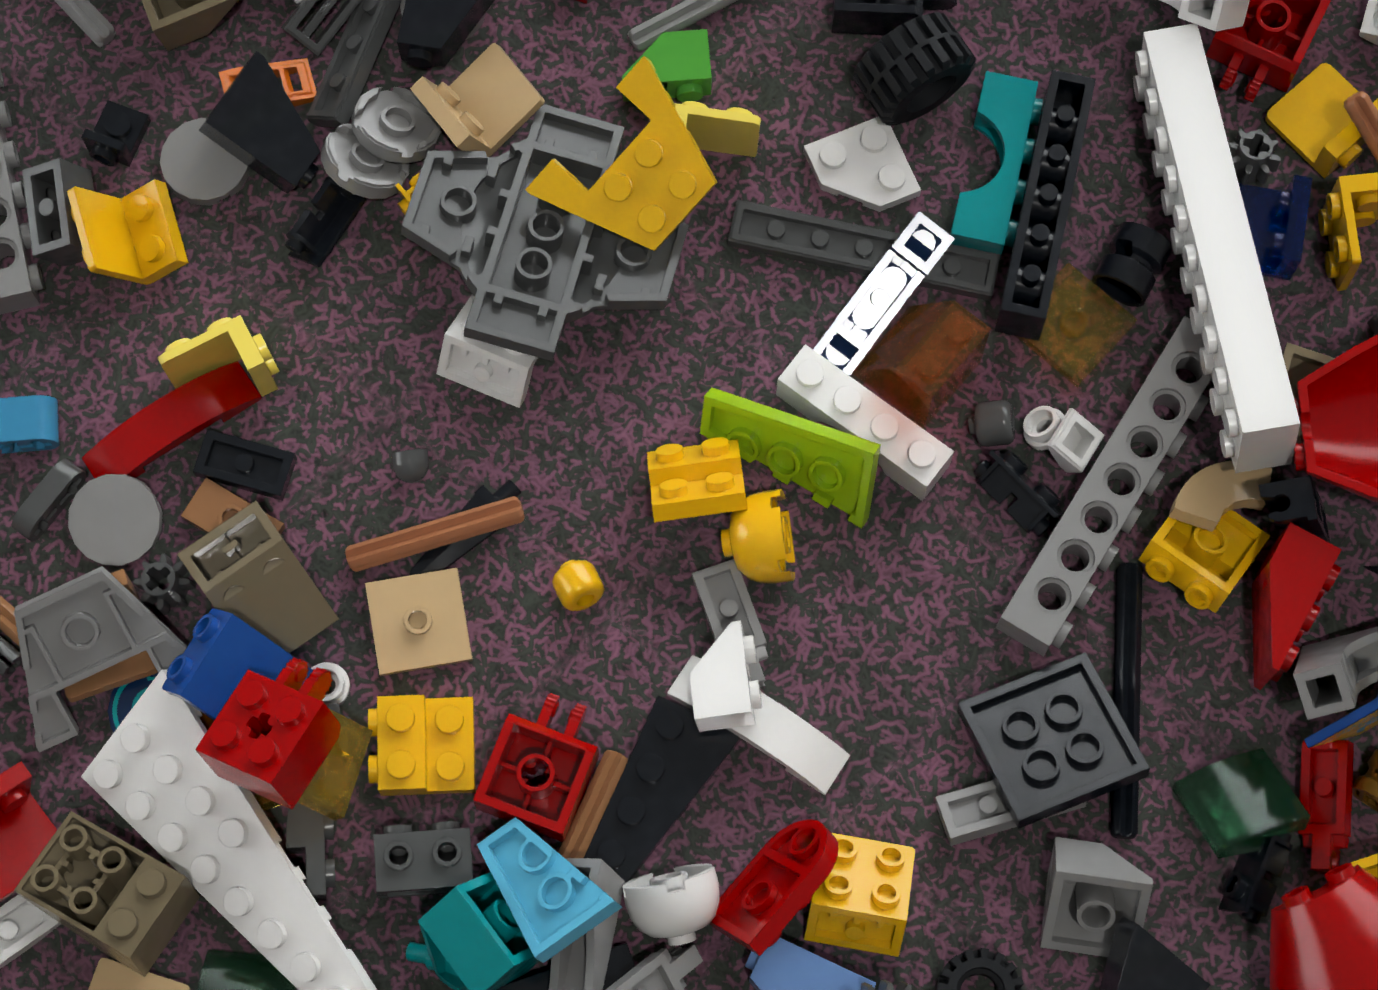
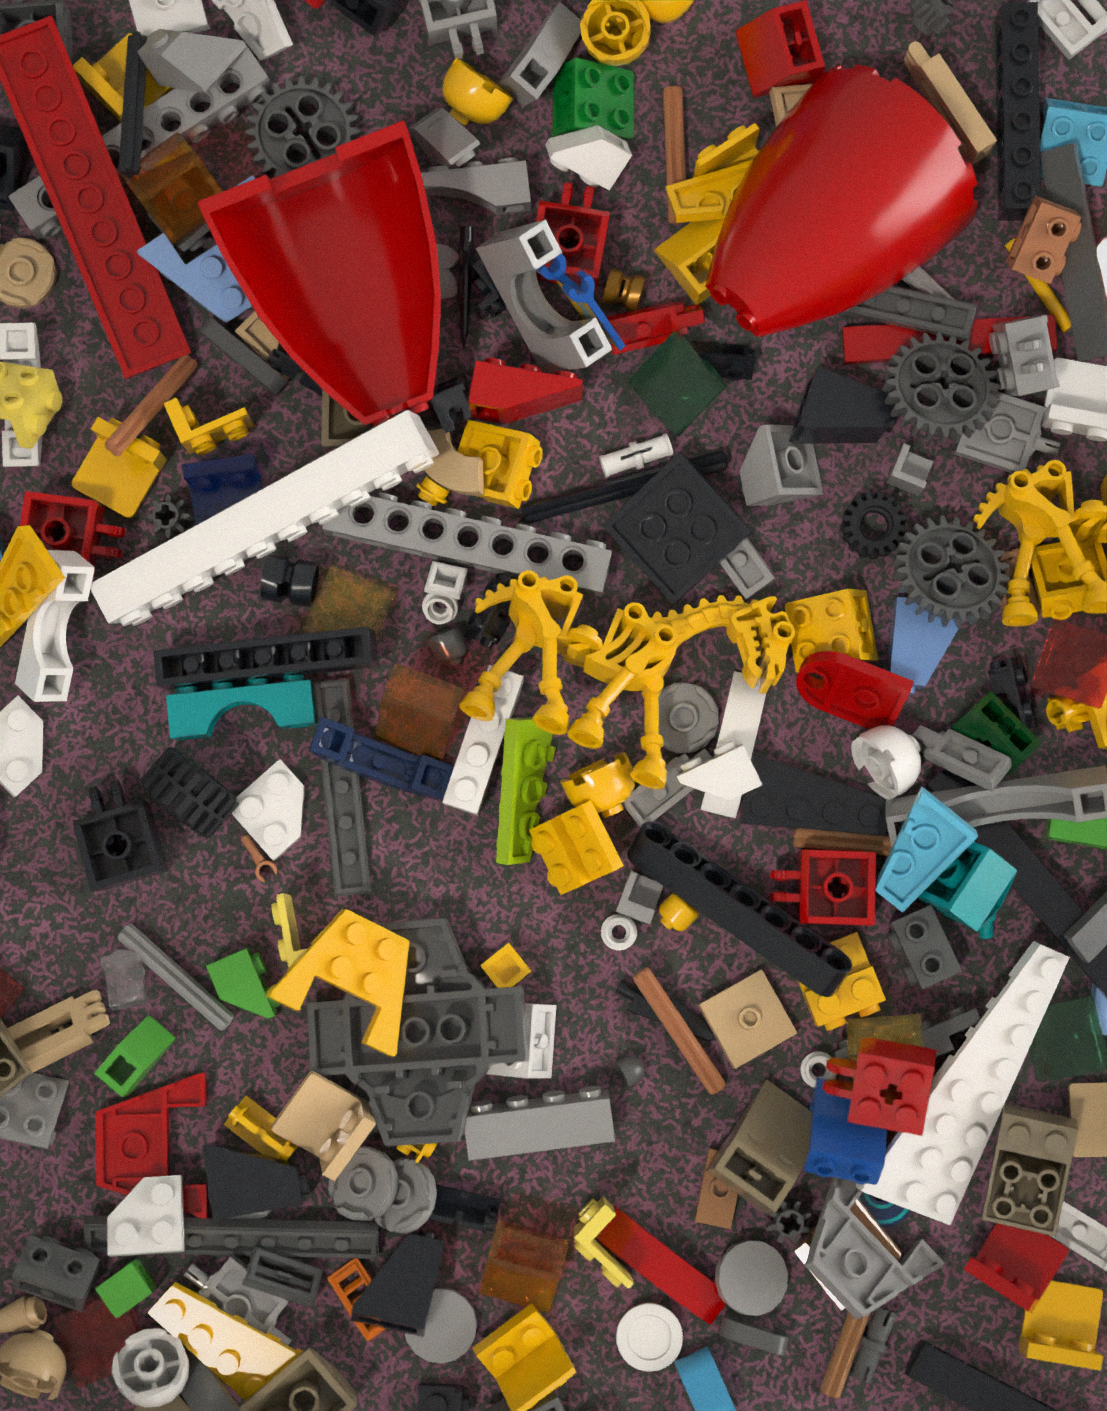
camera: 105 degrees left, 10 degrees up
(96, 383) = (649, 1337): none -> white piece
(236, 267) = (523, 1266): none -> clear orange slope
(245, 464) = (674, 1195): black plate -> none
(388, 337) = (539, 1123): none -> light grey brick
(511, 30) = (254, 1126): none -> yellow hinge
(551, 648) = (739, 909): none -> black beam
(571, 495) = (610, 923): none -> white plate
(583, 358) = (505, 967): none -> yellow tile
(610, 542) = (639, 898): none -> light grey panel
(807, 685) = (676, 717): none -> light grey tile
(808, 134) = (257, 857): none -> nougat hand
(918, 616) = (639, 667): none -> yellow animal
(1163, 726) = (636, 455): none -> white pin
(1189, 463) = (432, 491): none -> yellow plate

